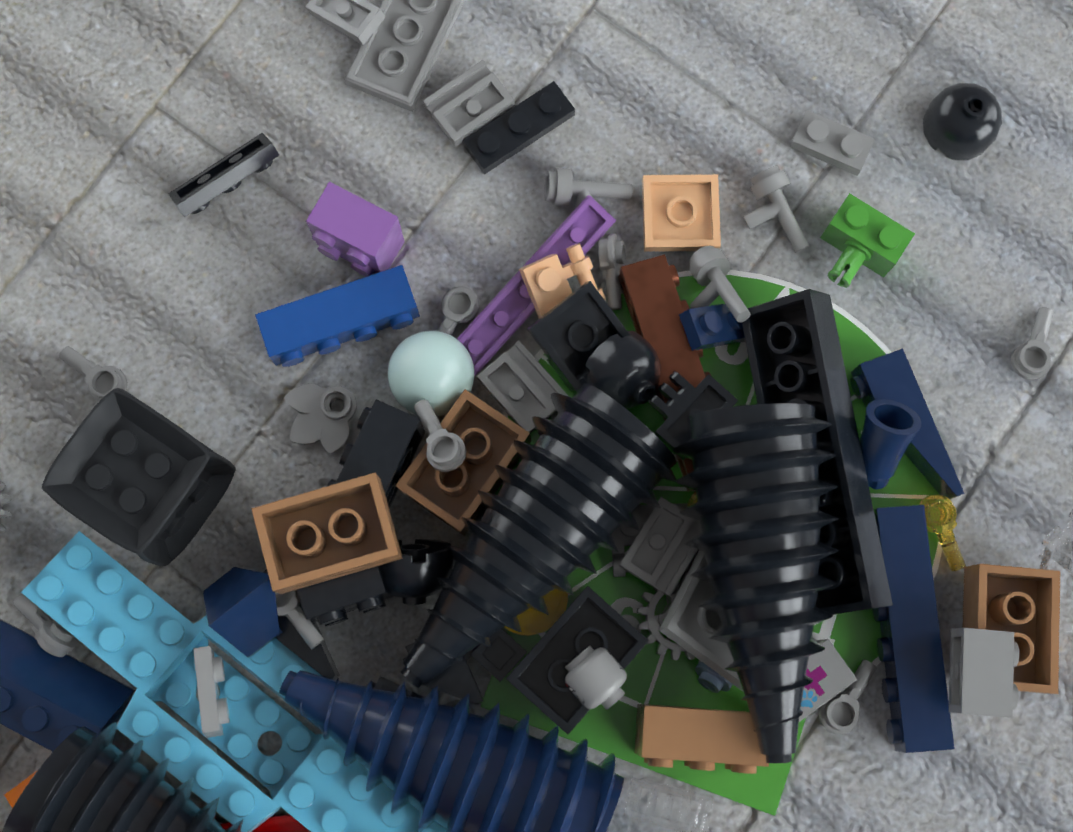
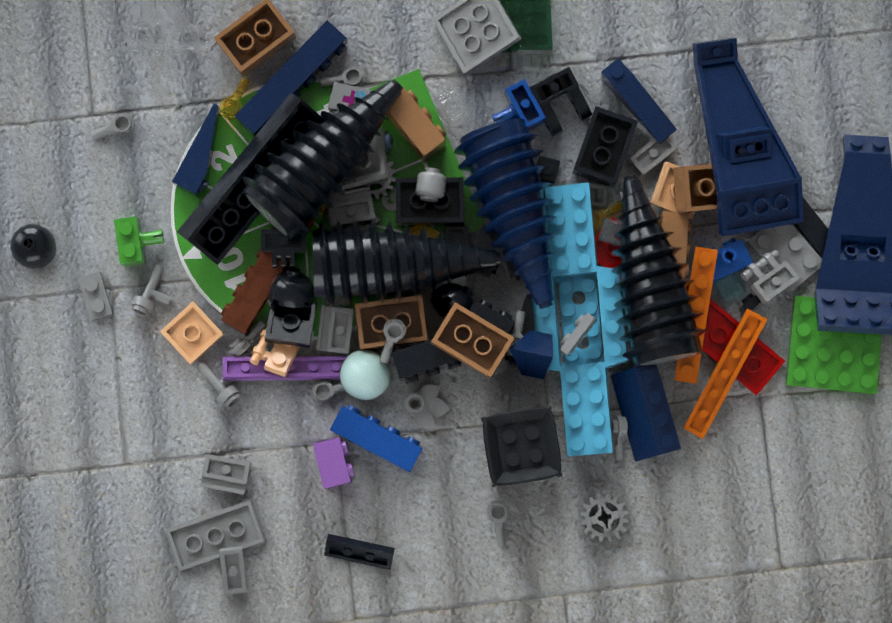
camera: 130 degrees left, 5 degrees up
(519, 127) = (215, 442): black plate -> none
(710, 269) = (206, 297): light grey piece -> none
(711, 327) = (233, 271): dark blue plate -> none
(885, 437) = (219, 155): dark blue plant -> none
(983, 672) = (287, 34): light grey brick -> none

